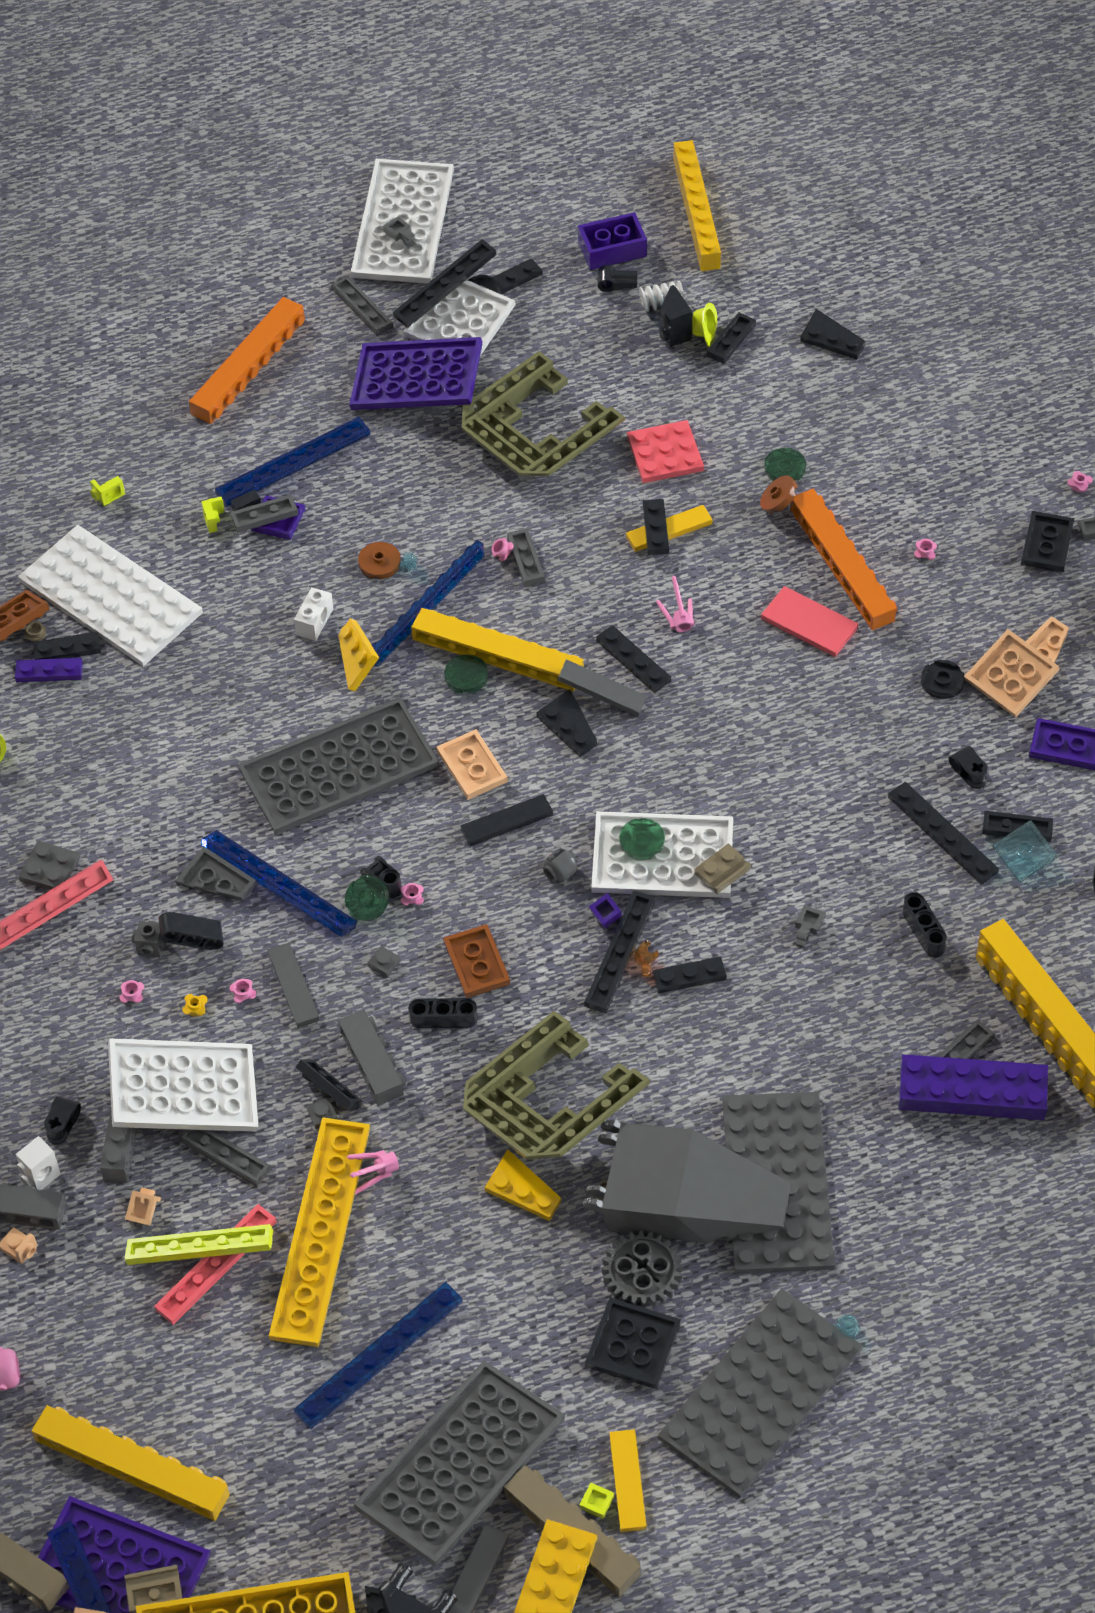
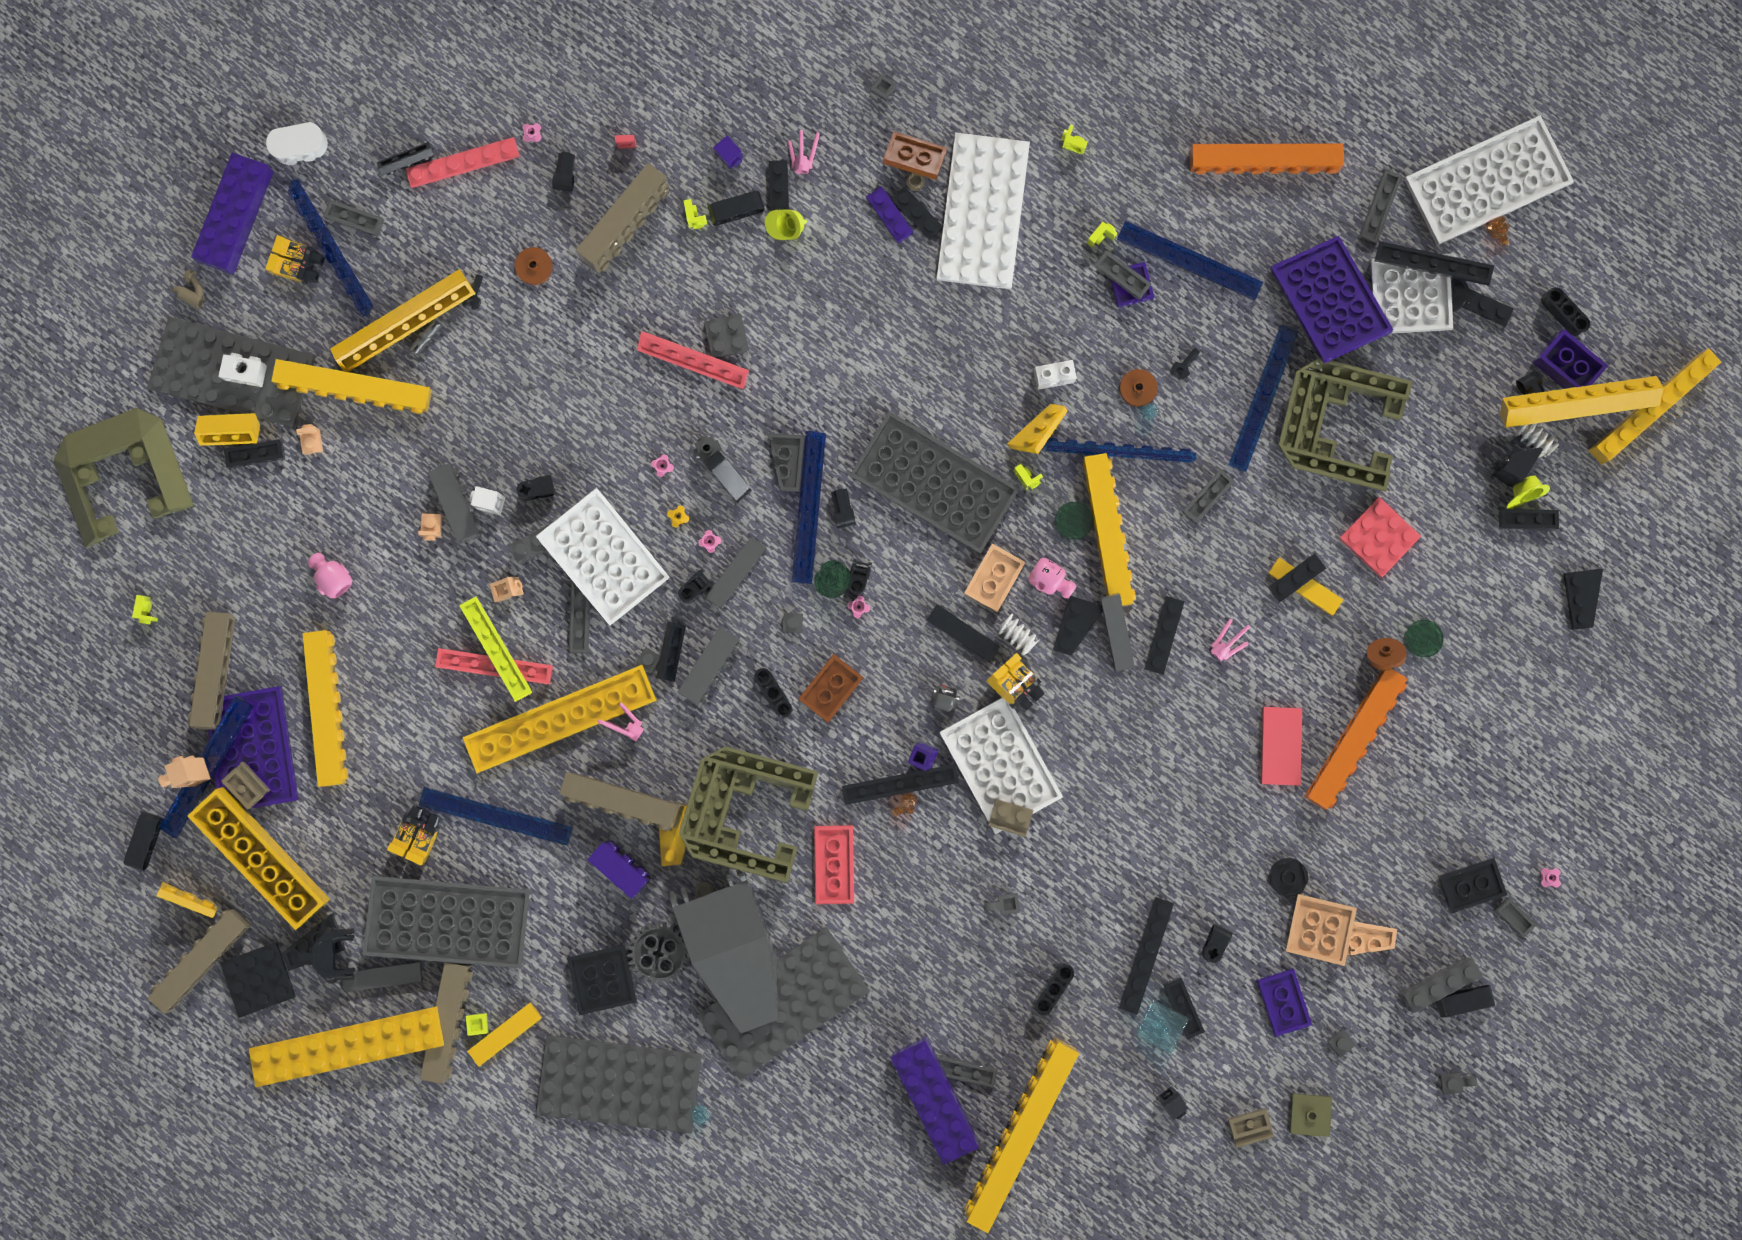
camera: 55 degrees right, 30 degrees up
(244, 500) = (1128, 250): black piece -> none
(280, 1026) = (695, 586): none -> black piece
(309, 857) = (843, 512): none -> black piece
(341, 1436) = (415, 836): none -> hips
(387, 515) = (1185, 364): none -> black bar
(393, 688) = (1024, 475): none -> neon yellow bracket
(400, 229) = (1470, 187): dark grey plate -> none
(451, 235) = (1499, 229): none -> clear orange piece
(452, 1203) = (616, 799): none -> dark tan brick
(467, 473) = (1262, 398): none -> clear blue plate
(502, 549) = (1204, 474): bright pink plate -> none
(508, 714) = (1050, 577): none -> bright pink piece
(524, 1250) = (619, 868): none -> dark purple brick
(542, 771) = (1018, 635): none -> white piece
(561, 223) = (1574, 312): none -> black beam
(591, 795) = (1015, 682): none -> hips
(642, 839) = (1000, 744): clear green tile -> none
(651, 243) = (1581, 401): none -> yellow brick
(661, 1056) = (834, 864): none -> coral tile
(689, 975) = (912, 843): black plate -> none
(925, 549) = (1412, 797): bright pink plate -> none

